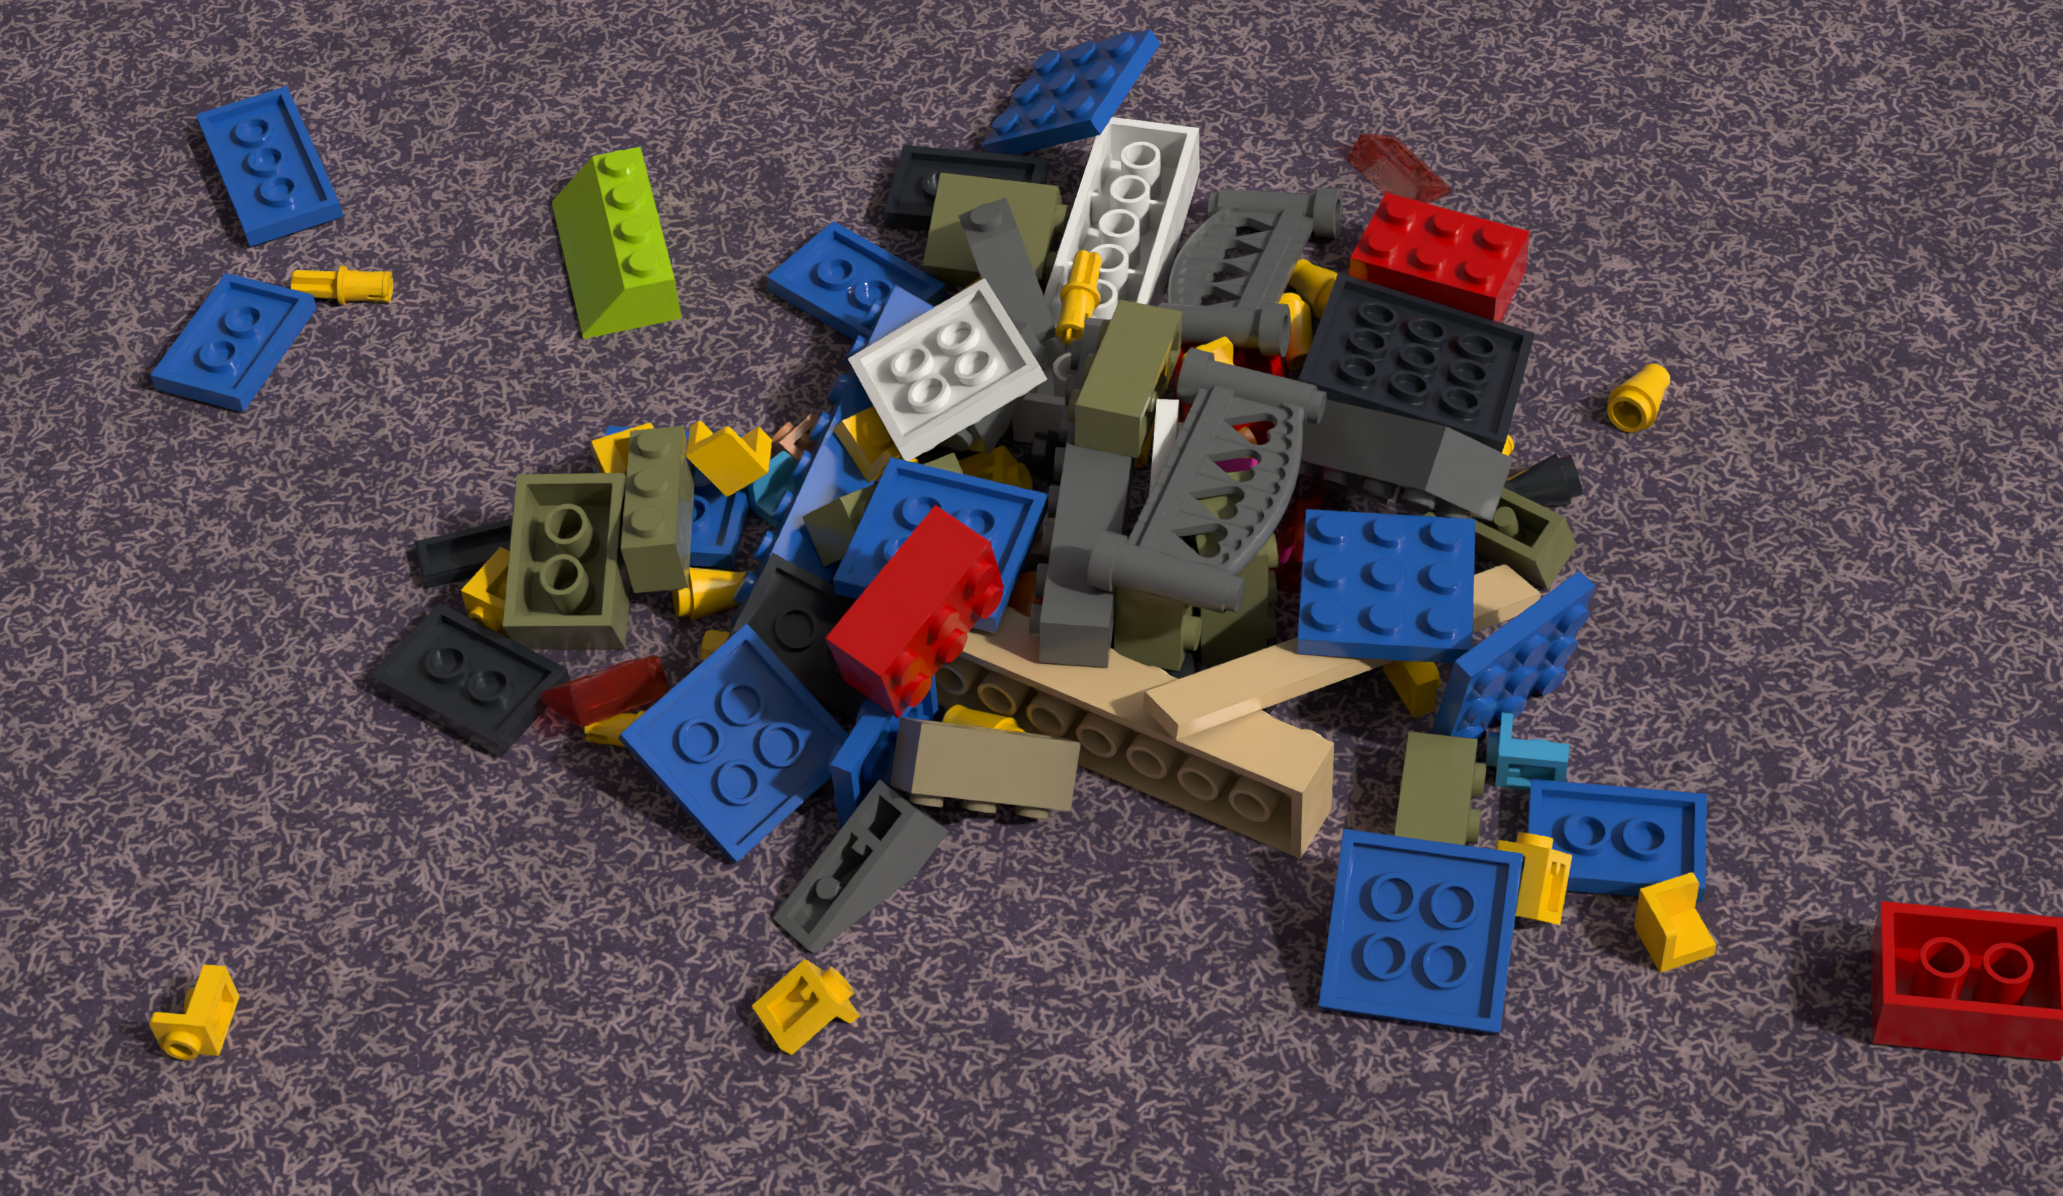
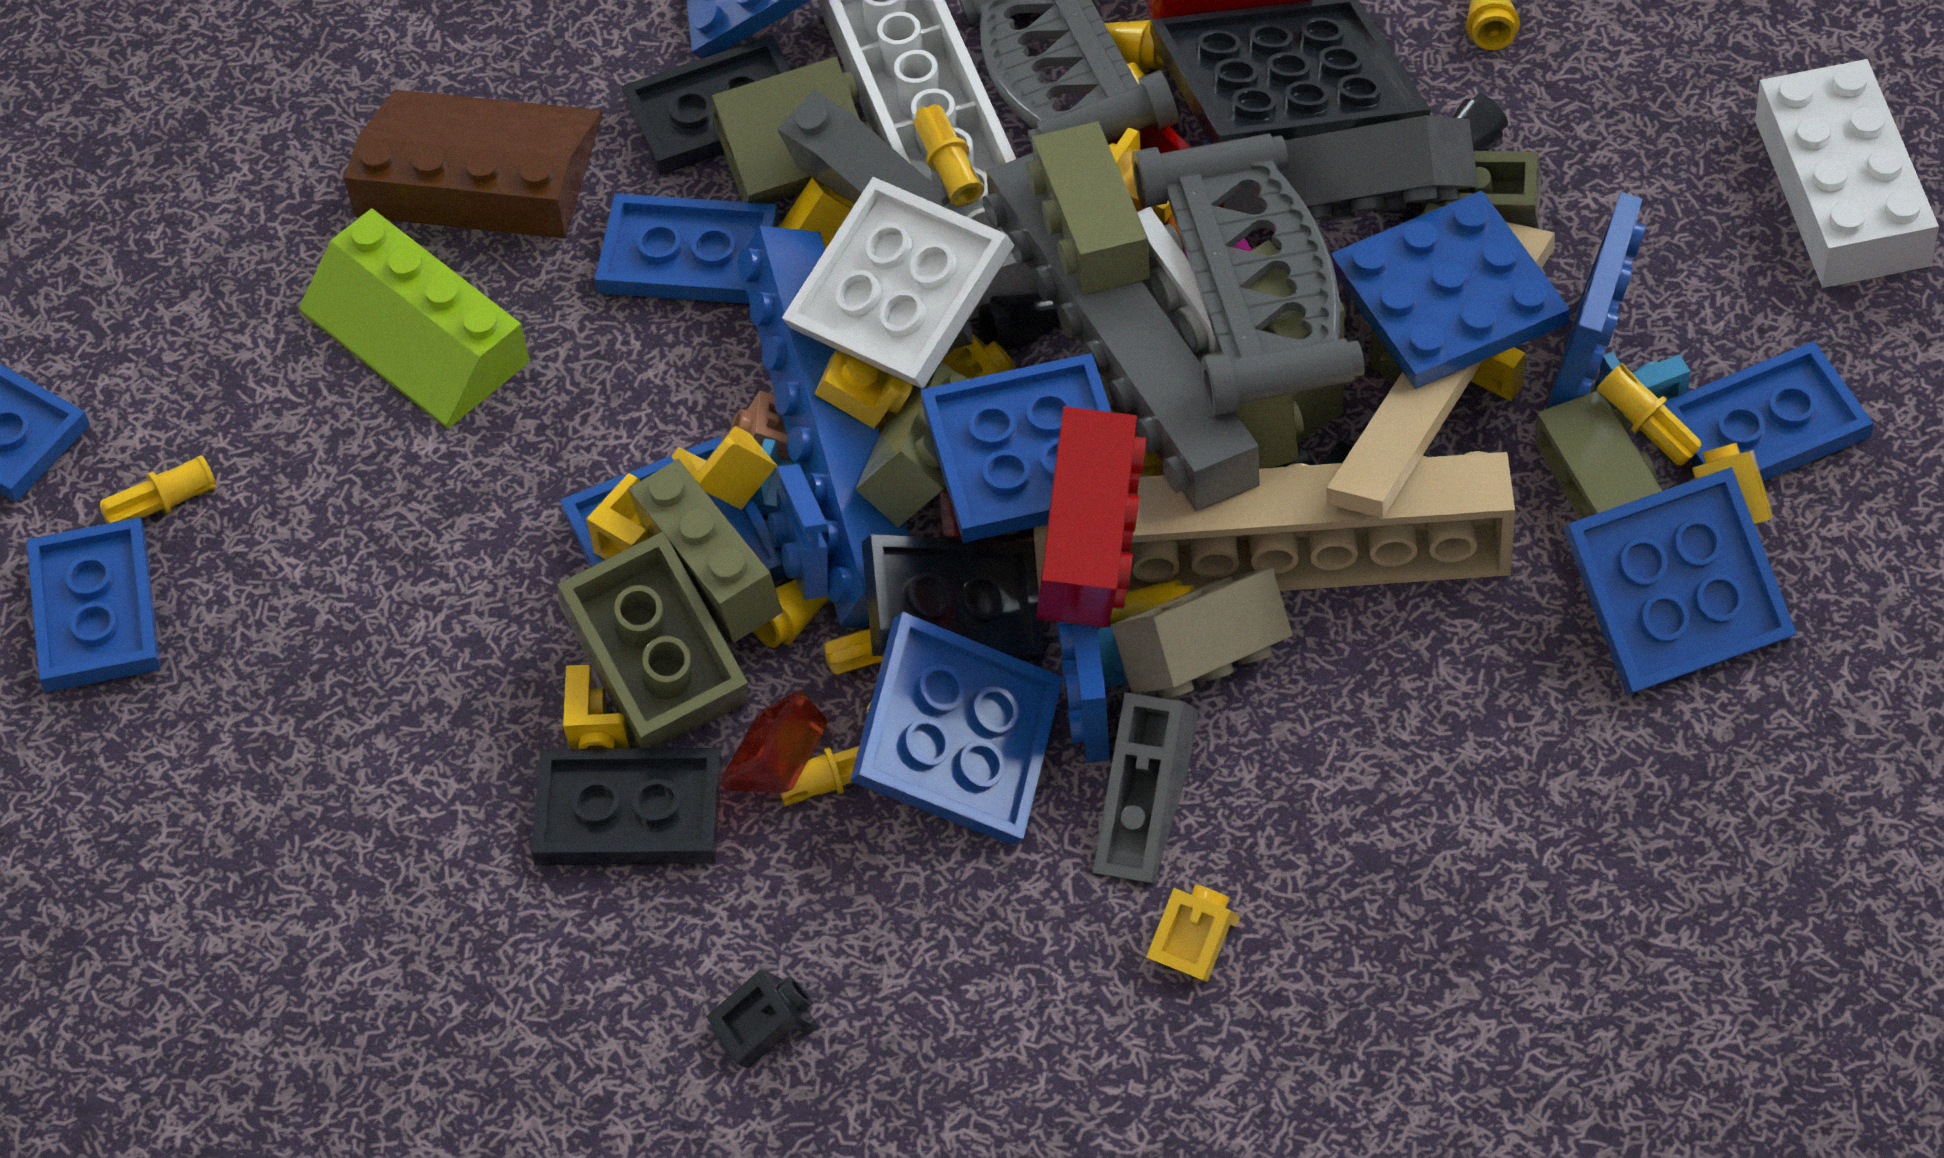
camera: 30 degrees left, 5 degrees up
(432, 888) = (761, 1016): none -> black bracket
(460, 553) = (517, 689): black tile -> none
(745, 527) = (798, 531): none -> blue plate
(754, 152) = (472, 163): none -> reddish brown slope
(1500, 778) = (1649, 415): none -> yellow axle
(1671, 923) = (1866, 471): yellow panel -> none
(1843, 668) = (1846, 173): none -> white brick

